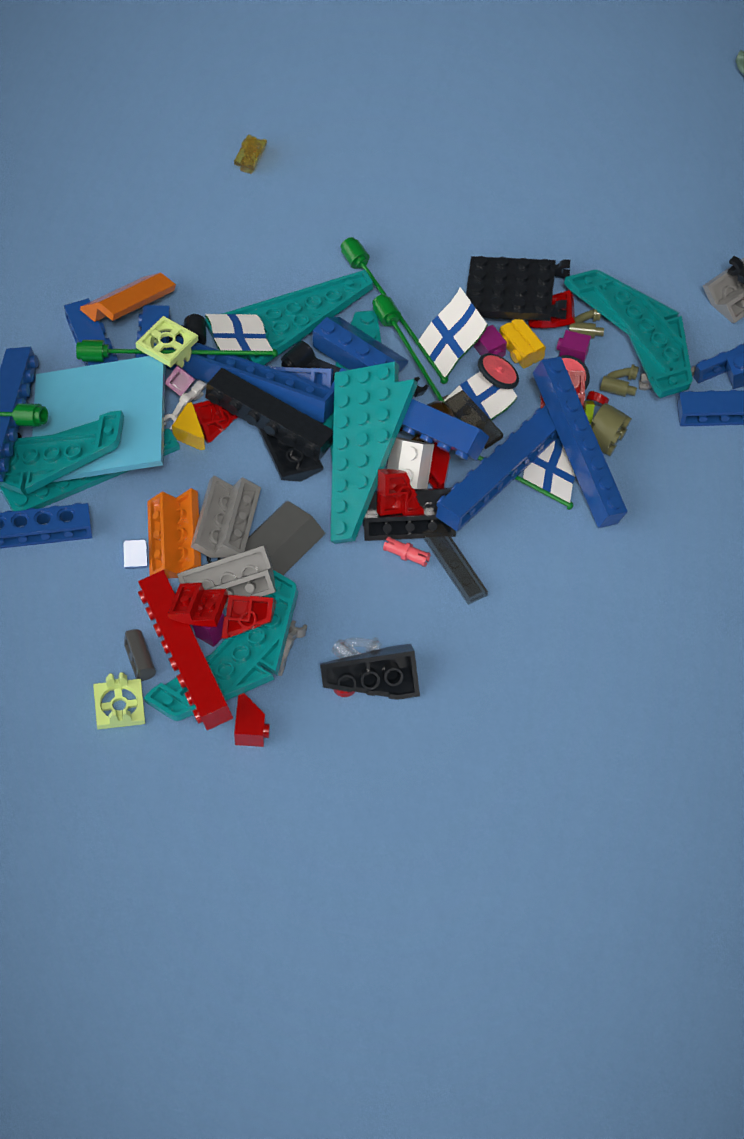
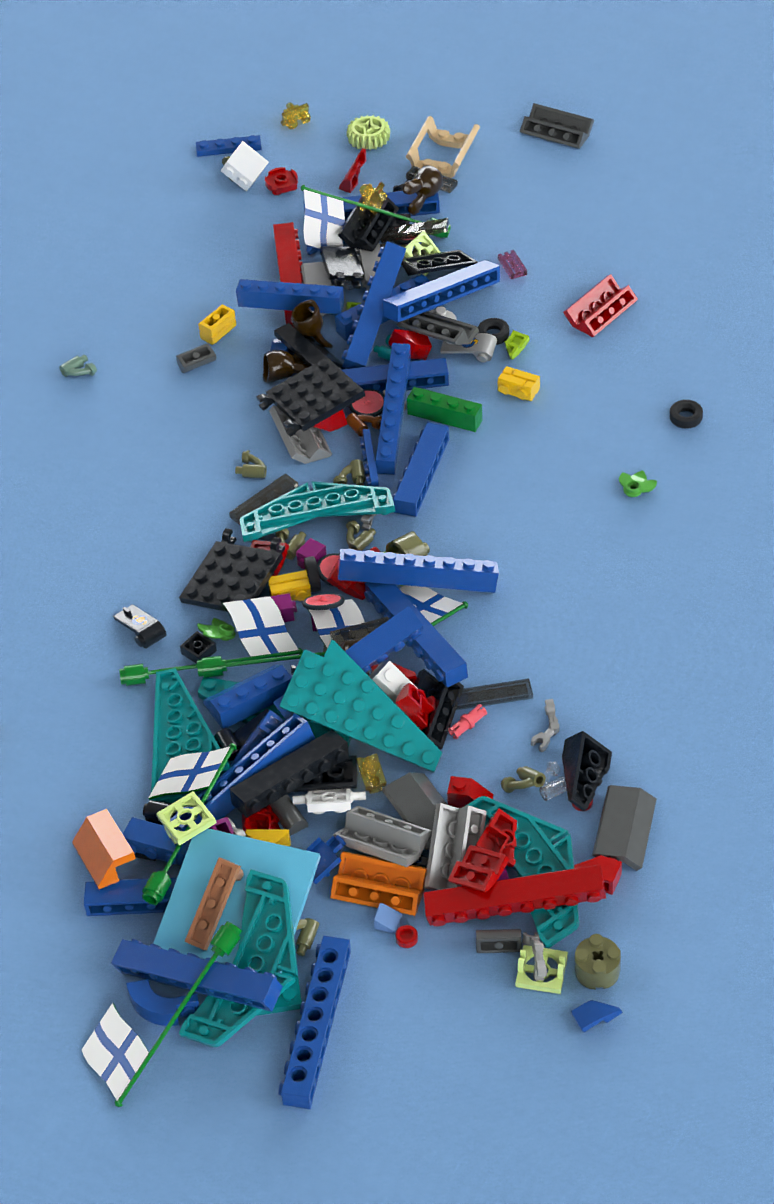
camera: 65 degrees left, 10 degrees down
(78, 762) = (594, 1012): none -> blue slope
(82, 394) = (213, 903): none -> nougat piece
(98, 492) = (307, 934): none -> olive plant
(108, 697) = (540, 969): none -> light grey piece
(122, 577) = (406, 936): none -> red tile
(135, 747) = (597, 962): none -> olive brick
(184, 475) = (328, 855): none -> blue piece
(232, 436) = (289, 815): none -> dark grey brick
(254, 459) = (329, 800): none -> white plate
(304, 485) = (371, 773): none -> clear yellow hips
(308, 579) = (464, 791): none -> red slope
(319, 730) = (625, 825): none -> dark grey slope
(351, 627) = (528, 776): none -> olive plant
(410, 293) = (198, 647): none -> black piece
(416, 241) = (146, 628): none -> black door
(436, 298) = (217, 630): none -> bright green plate
(452, 622) = (553, 729): none -> light grey piece
(548, 346) = (312, 573): none -> black tyre
(651, 287) = (274, 490): none -> clear smoke tile
(675, 265) = (258, 470): none -> olive plant
(716, 346) = (356, 469): none -> olive plant

